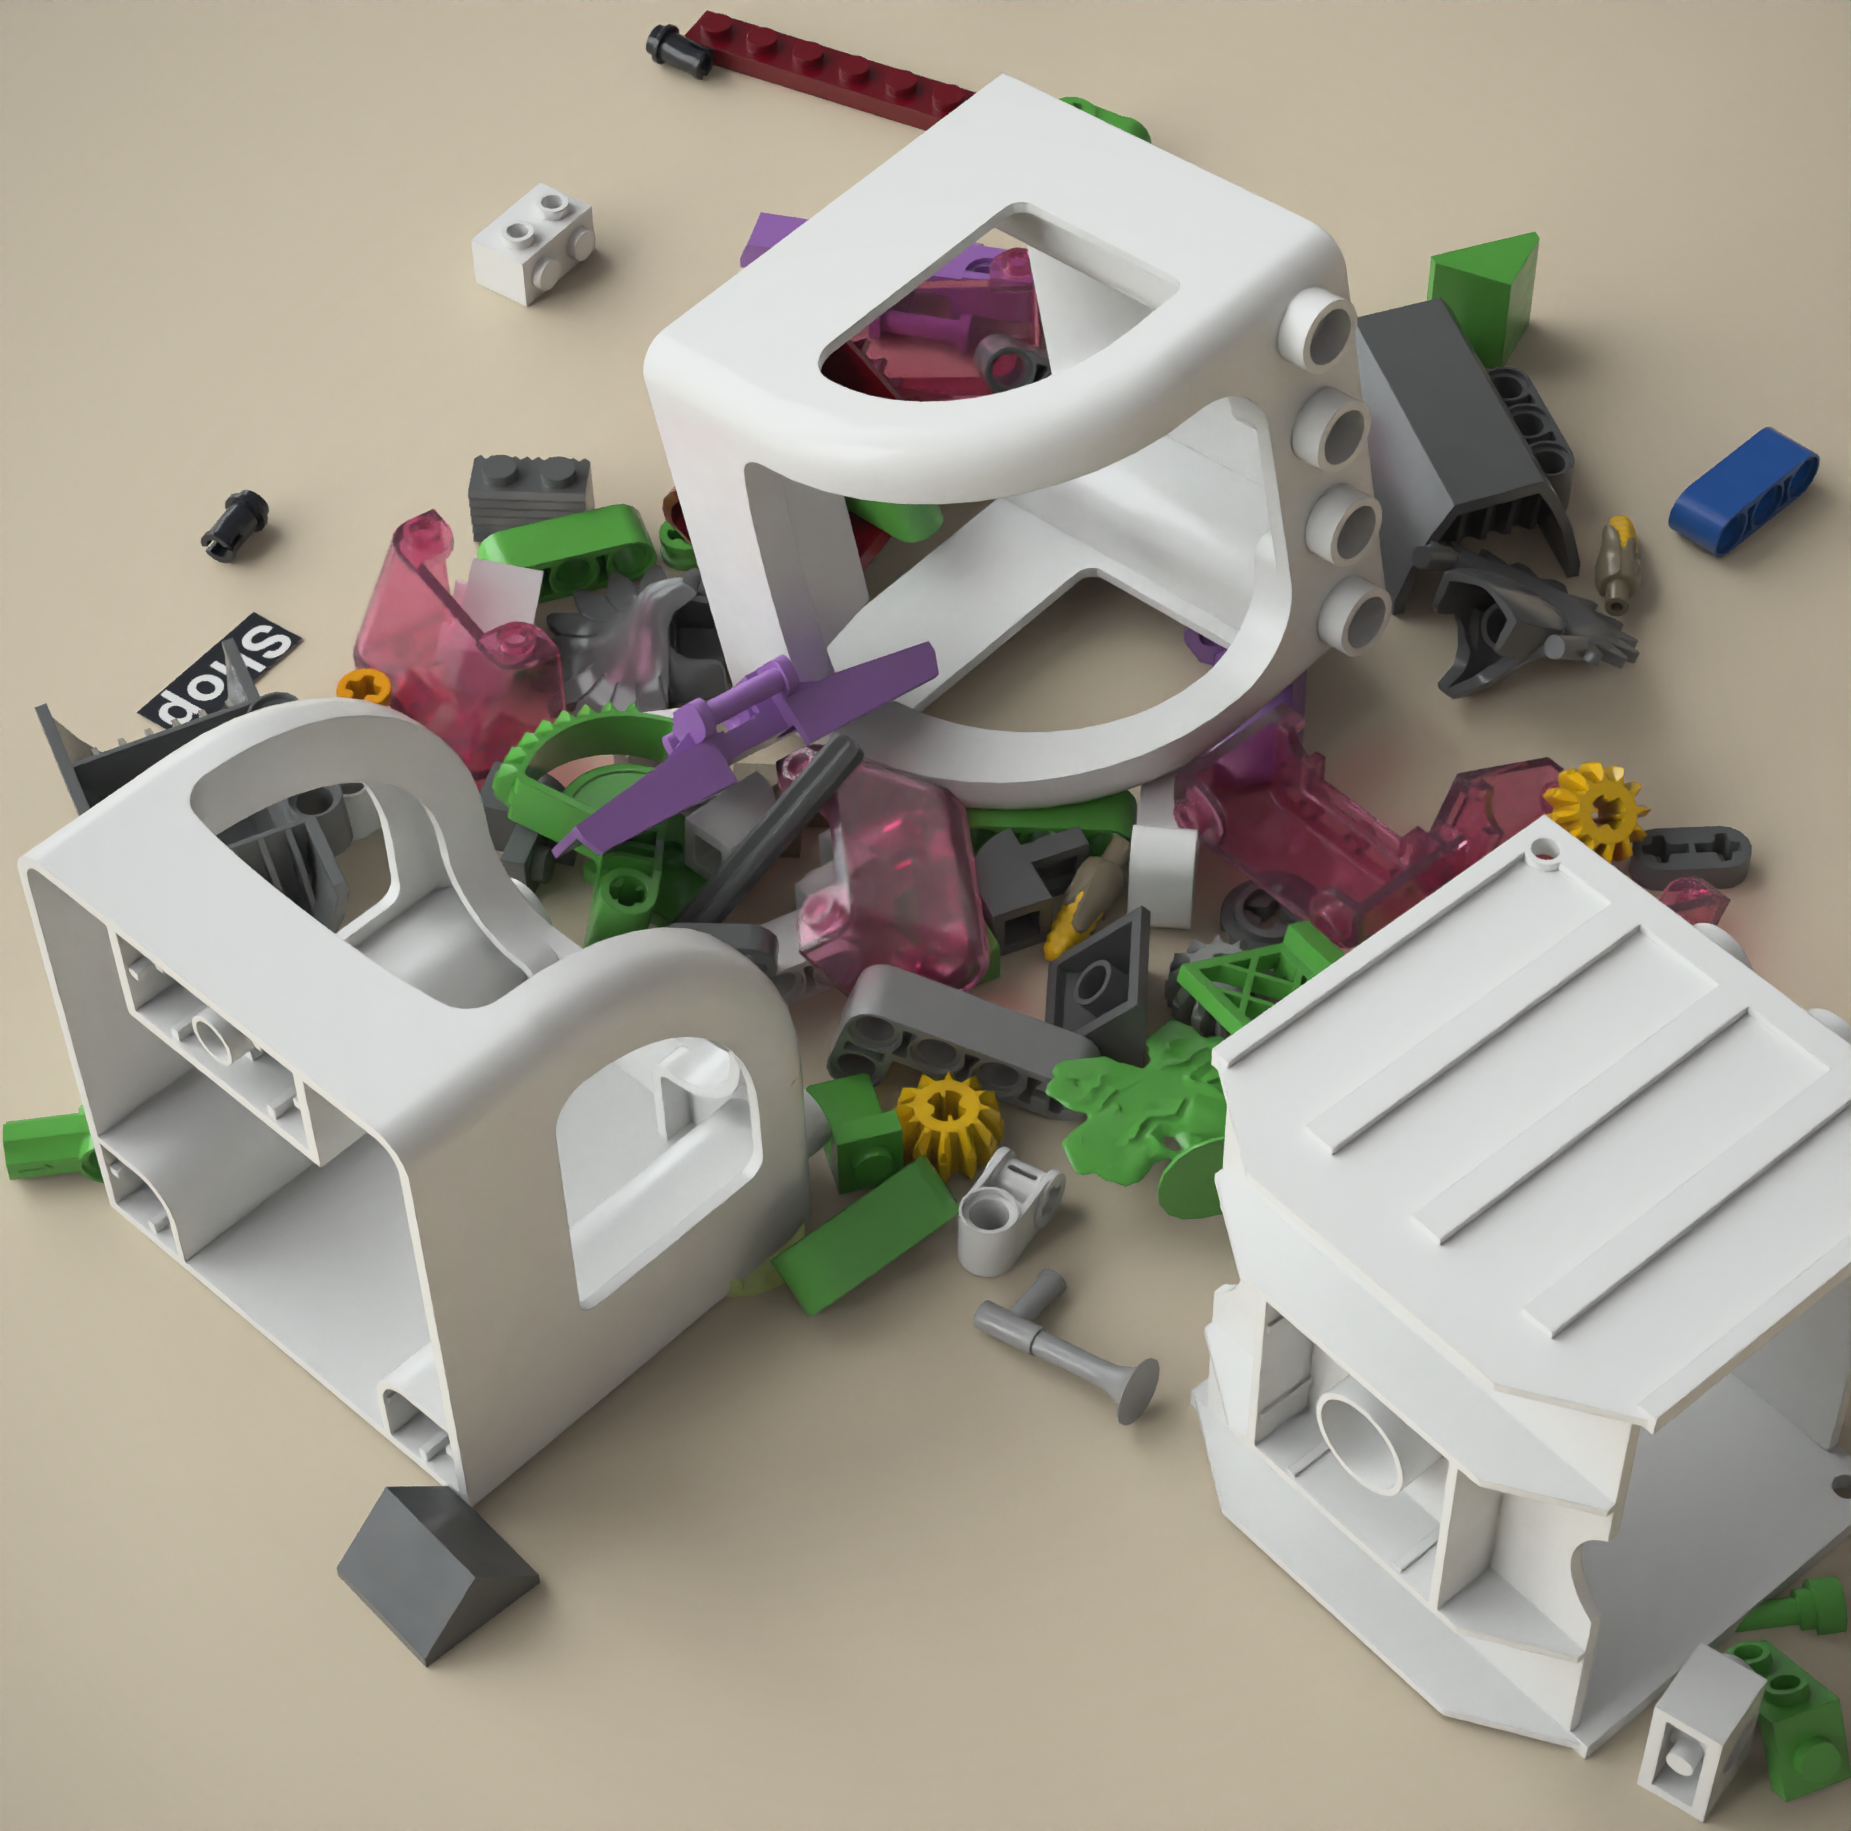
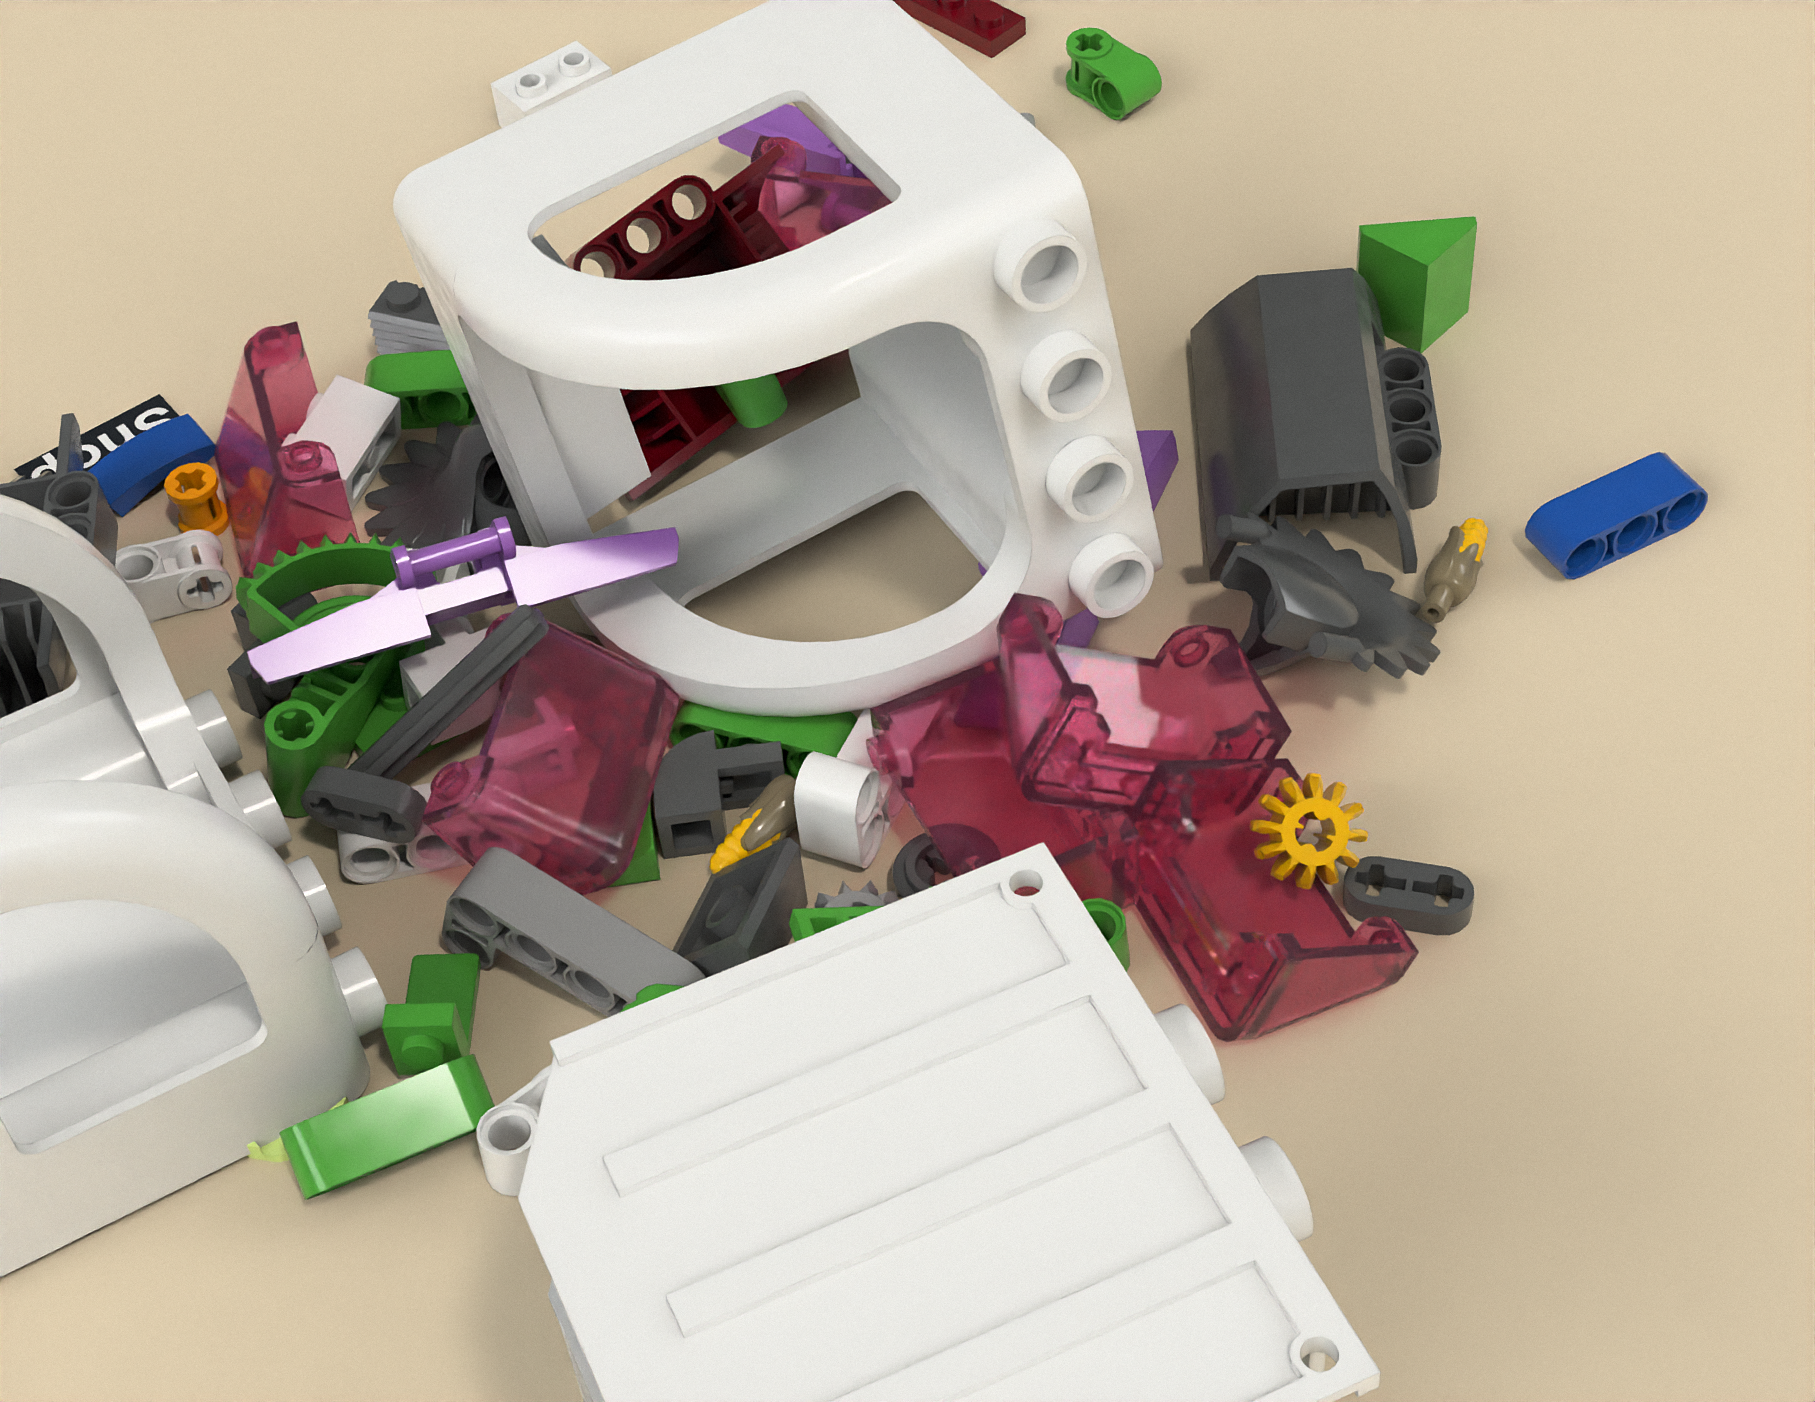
camera: 20 degrees right, 0 degrees up
(244, 514) = (176, 311): black pin -> none
(304, 665) = (148, 458): none -> blue slope
(950, 1124) = (516, 1023): yellow gear -> none
(1127, 1386) = (500, 1263): light grey piece -> none
(1395, 753) = (1100, 721): none -> clear pink windscreen

